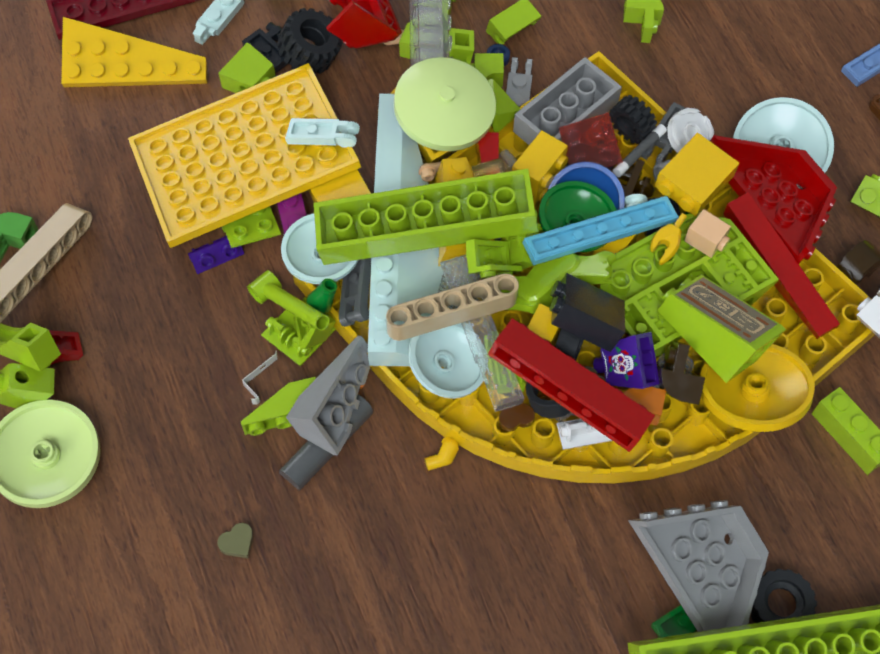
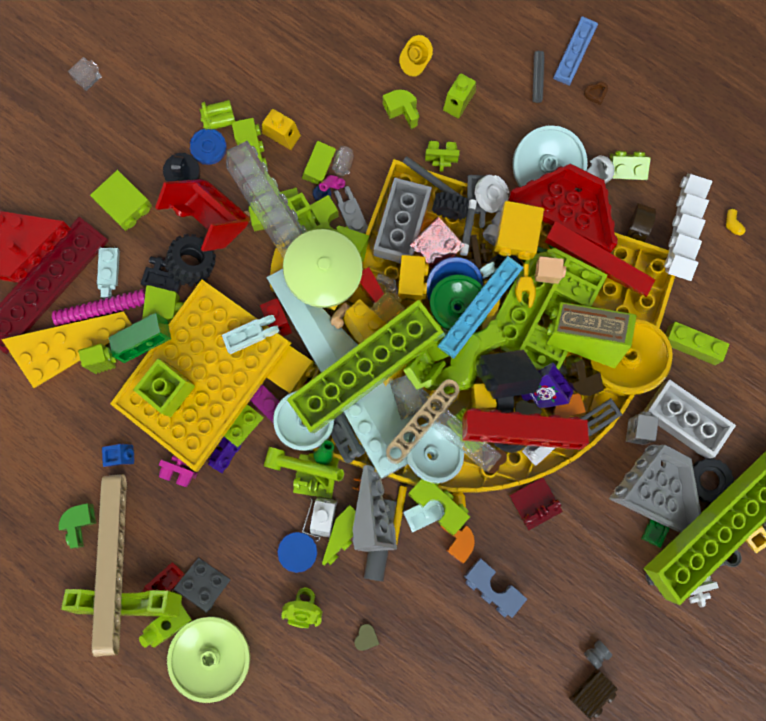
camera: 30 degrees left, 15 degrees up
(92, 374) = (202, 585): none -> dark grey hinge
(100, 191) = (117, 455): none -> blue bracket
(146, 85) = (97, 358): none -> lime brick
(156, 249) = (168, 469): none -> dark pink hips
(182, 462) = (302, 613): none -> lime tile
(183, 42) = (97, 308): none -> dark pink piece
(193, 140) = (164, 388): none -> lime brick
(204, 87) = (139, 338): none -> green brick
(222, 401) = (297, 552): none -> blue tile
(274, 373) = (323, 517): none -> white torso
(366, 142) = (274, 308): none -> red torso
(366, 426) = (399, 510): none -> yellow bar
(398, 440) = (420, 517): none -> light aqua hinge
(413, 407) = (454, 514): none -> lime arch
(421, 498) = (462, 544): none -> orange brick
(433, 596) = (507, 601): none -> sand blue arch
(516, 47) = (332, 182): none -> dark pink arm
(540, 506) = (536, 503): none -> dark red hinge
(542, 33) = (343, 161): none -> clear brick
(623, 76) = (428, 176): none -> dark grey bar
(658, 81) = (442, 157): none -> lime hips
(677, 449) = (613, 408): none -> dark grey tile
(717, 30) = (462, 92): none -> lime torso
(726, 483) = (642, 428): none -> light grey brick
(793, 511) = (689, 419): none -> white brick
(823, 59) = (538, 77): none -> dark grey axle
(847, 183) = (602, 168): none -> white hair

